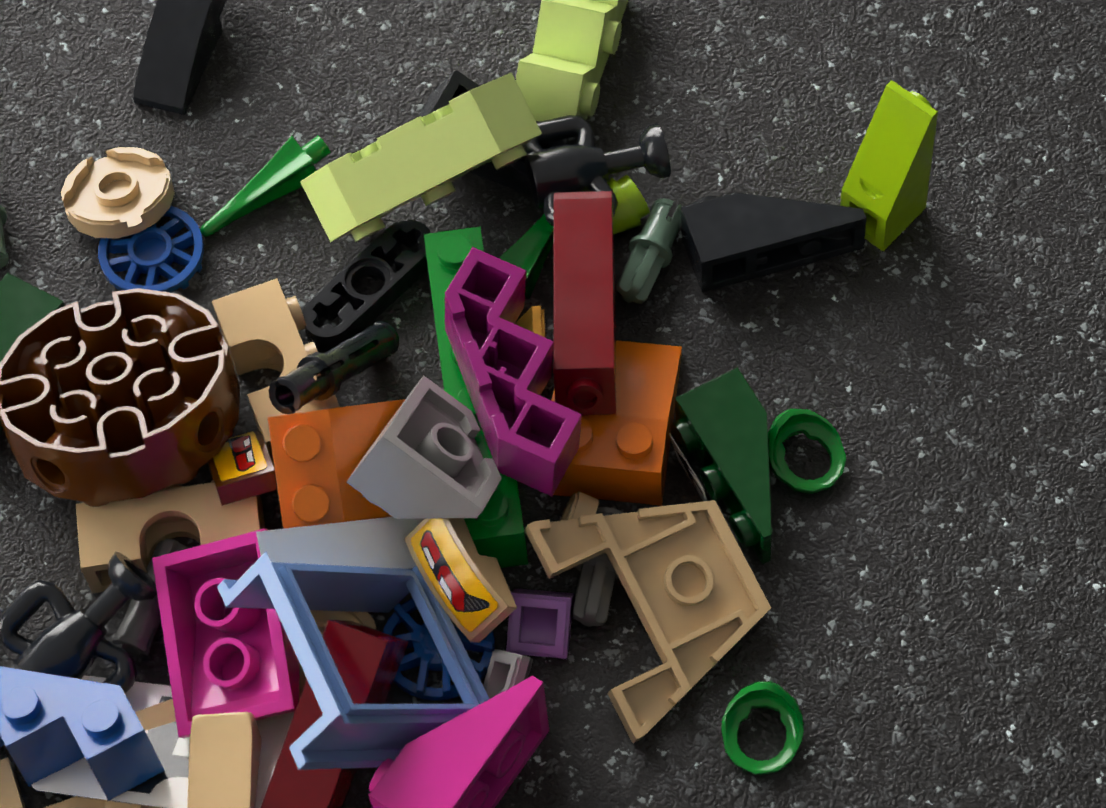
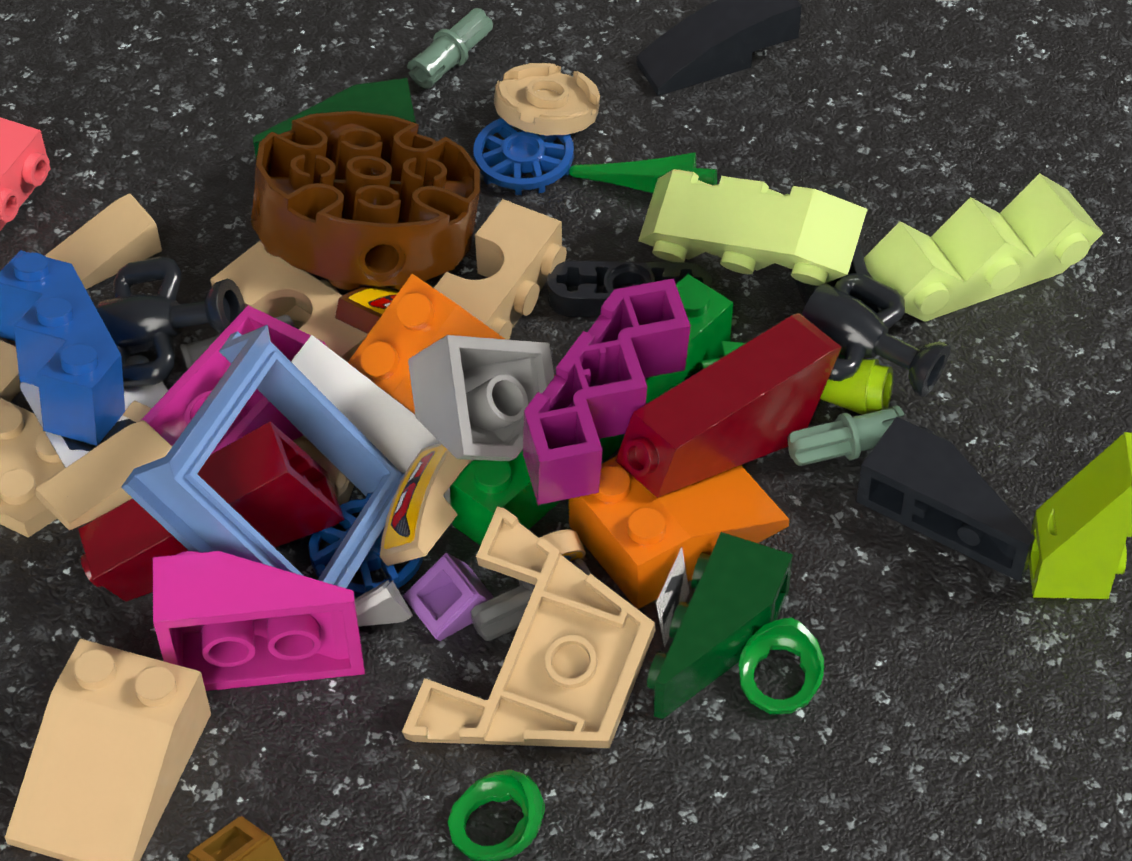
camera: 45 degrees right, 10 degrees down
(299, 386) = (499, 296): black pin -> none

